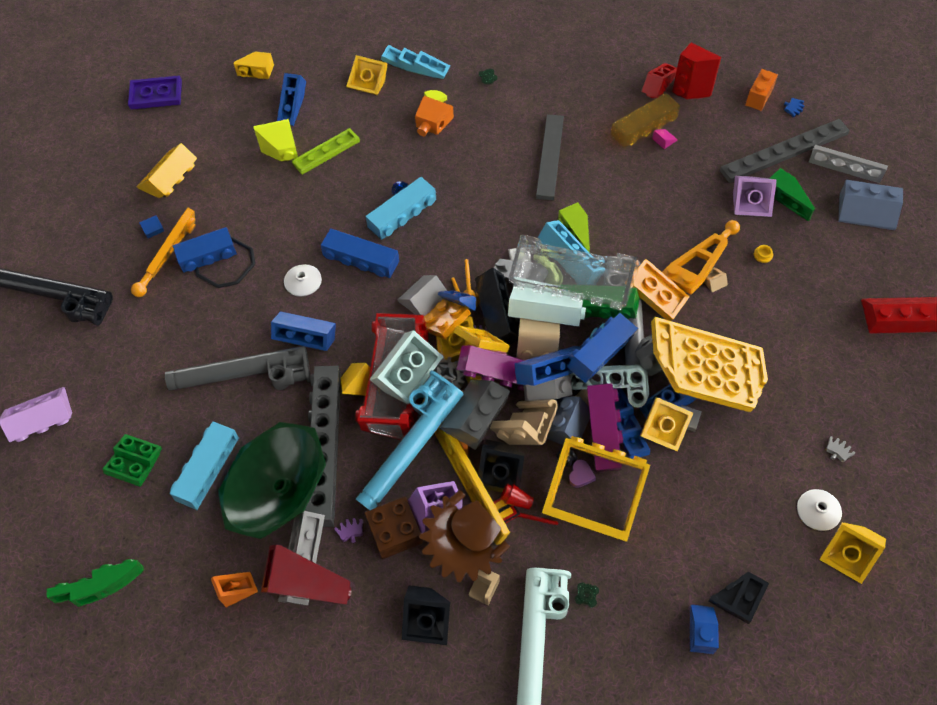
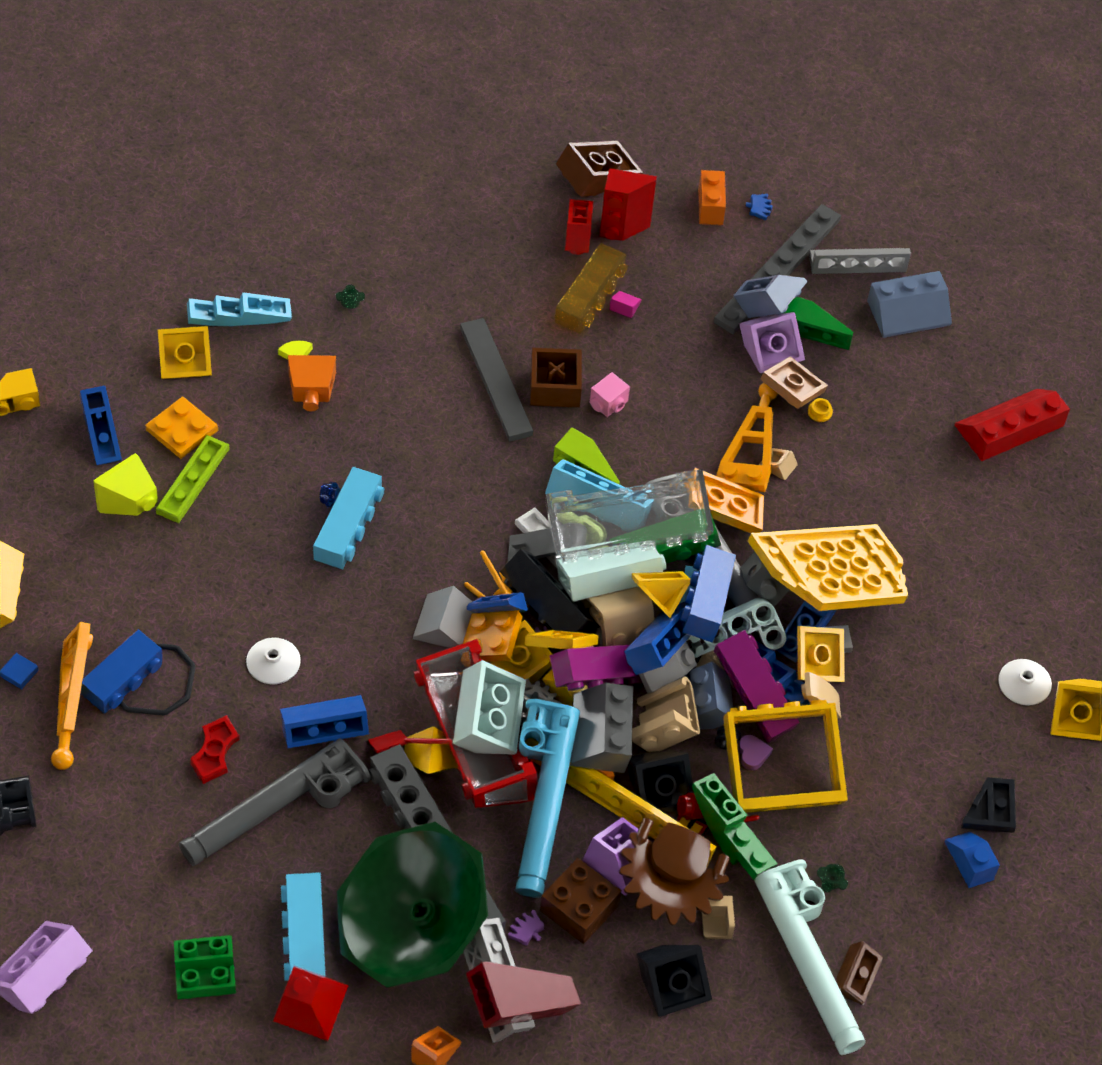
camera: 35 degrees left, 5 degrees down
(172, 514) = (310, 1003): none -> red slope
(223, 327) = (210, 760): none -> red tile
(338, 118) = (181, 427): none -> light orange plate
(342, 361) = (395, 738): none -> red piece
(360, 253) = (331, 596): blue brick -> none
(528, 523) = (728, 827): none -> green slope
(566, 678) = (858, 972): none -> reddish brown slope
(571, 331) = (663, 588): none -> yellow slope
(587, 167) = (556, 377): none -> reddish brown brick
(618, 191) = (609, 395): none -> bright pink brick
(652, 452) = (818, 688): none -> tan slope
(682, 36) = (588, 165): none -> reddish brown slope
(753, 228) = (793, 382): none -> medium nougat plate
(765, 162) = (768, 294): none -> sand blue slope
(838, 450) = (1012, 608): light grey piece -> none

